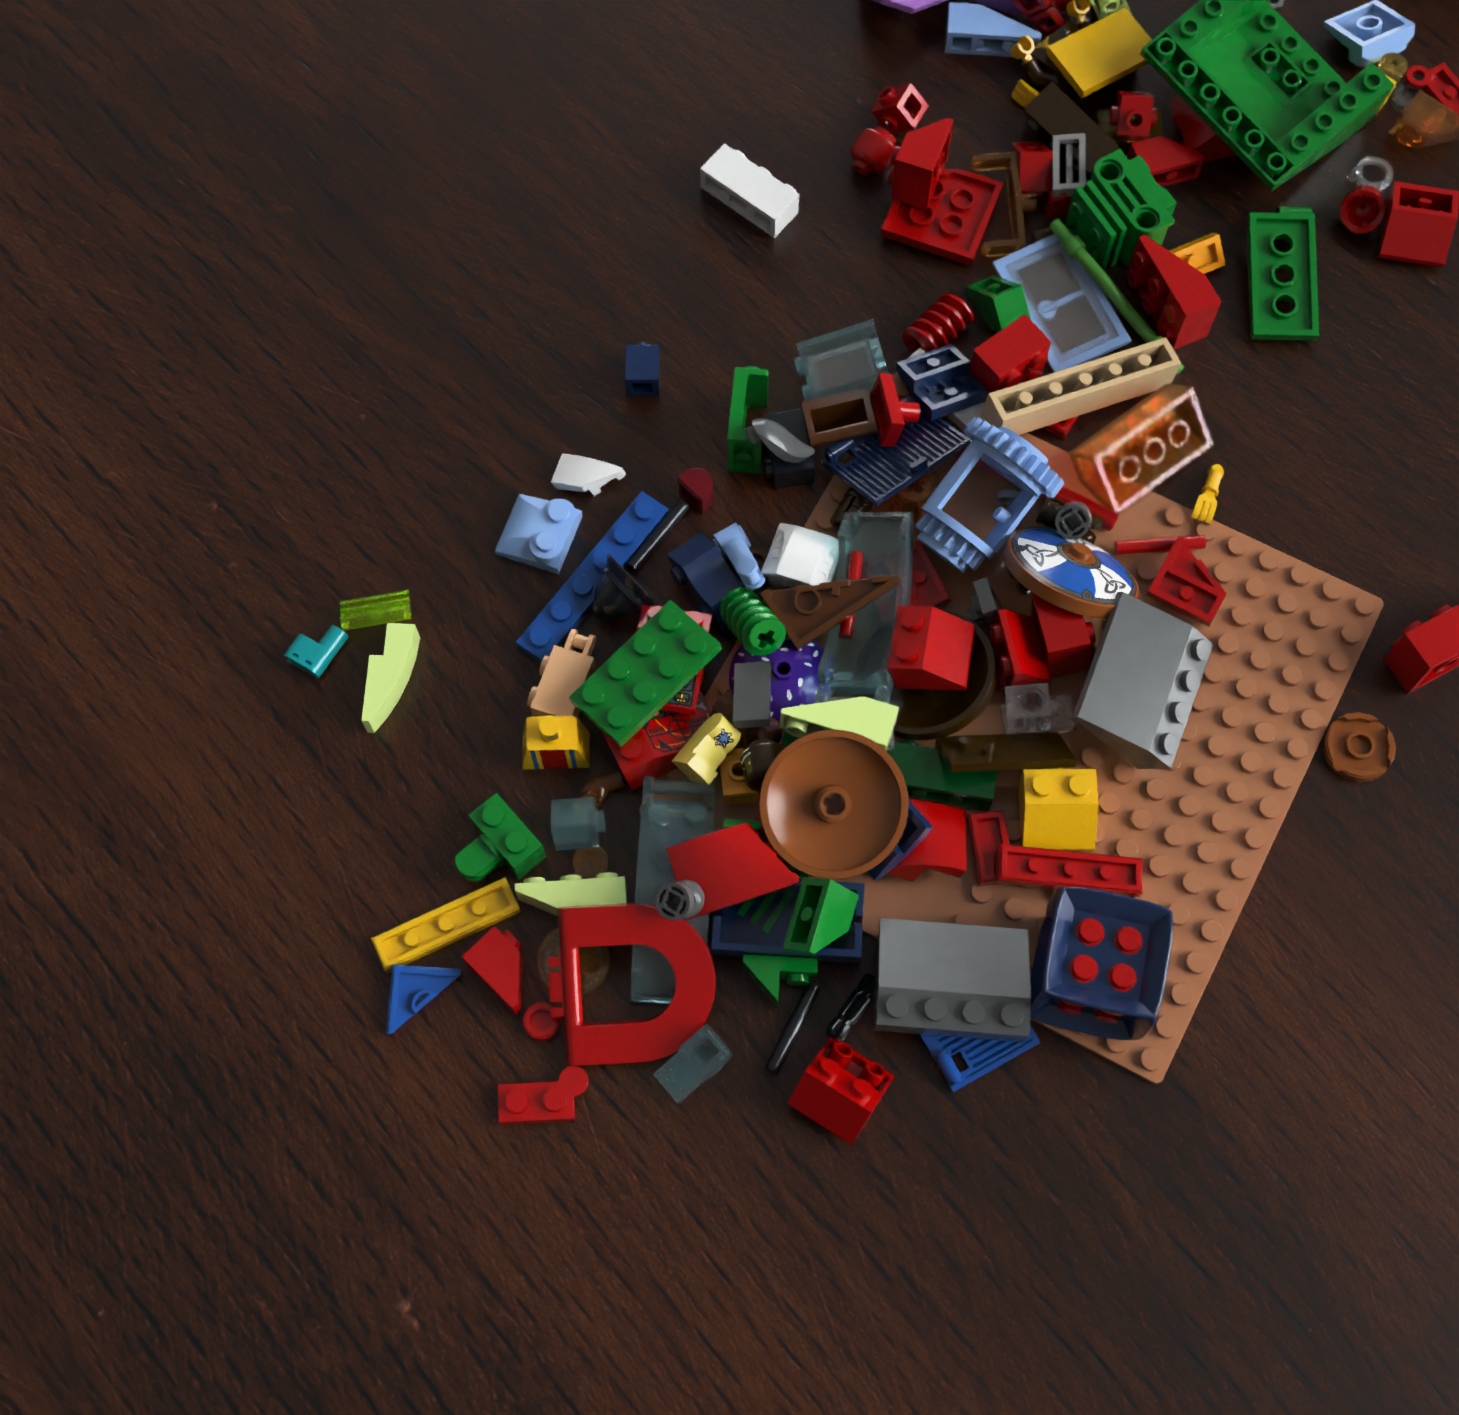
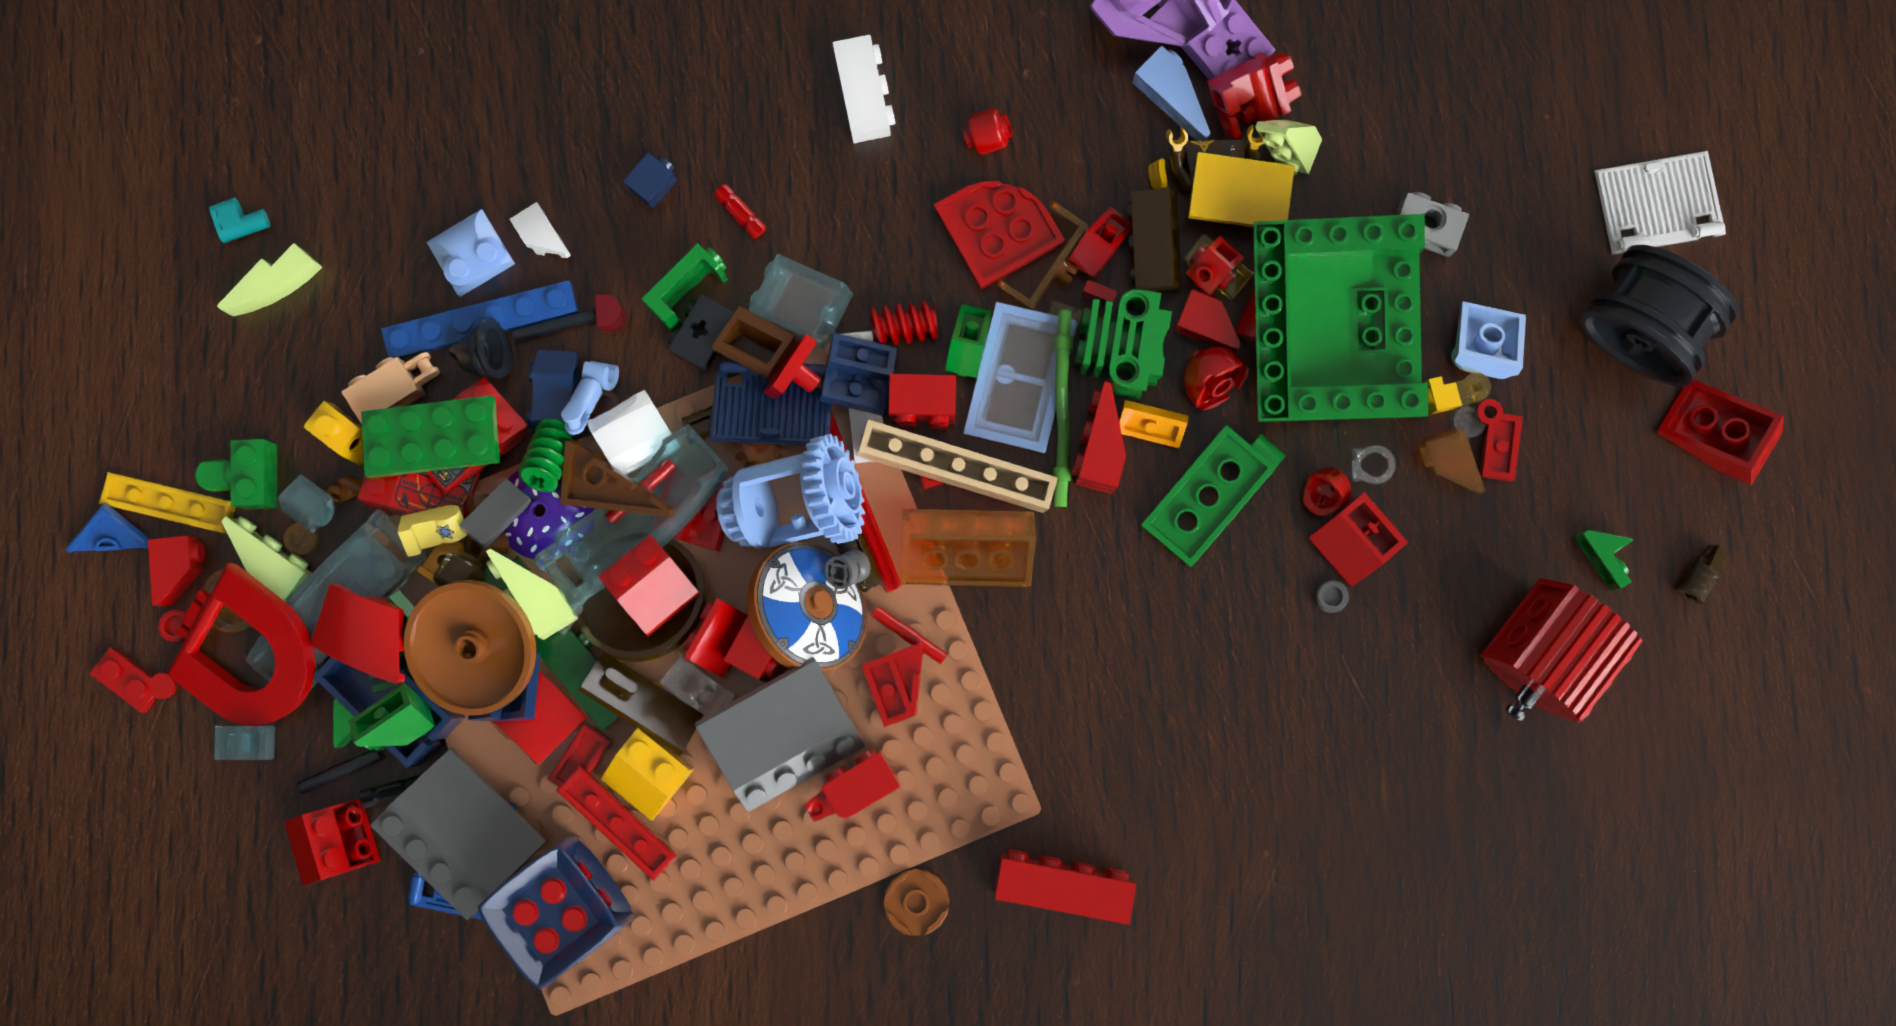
camera: 40 degrees right, 15 degrees up
(375, 610) = (305, 219): clear neon green tile -> none
(688, 897) = (304, 629): dark grey wheel -> none
(732, 344) = (739, 211): none -> red axle
(778, 440) = (680, 330): dark grey arm -> none
(899, 108) = (1038, 110): red brick -> none
(920, 163) = (999, 178): red slope -> none
(985, 603) = (729, 583): dark grey plate -> none
(1069, 186) = (1101, 292): light grey tile -> none
(1202, 191) = (1211, 375): none -> red cylinder
(1206, 502) = (977, 629): yellow piece -> none
(1237, 676) = (854, 789): none -> red hinge
(1435, 284) = (1331, 596): none -> dark grey tile

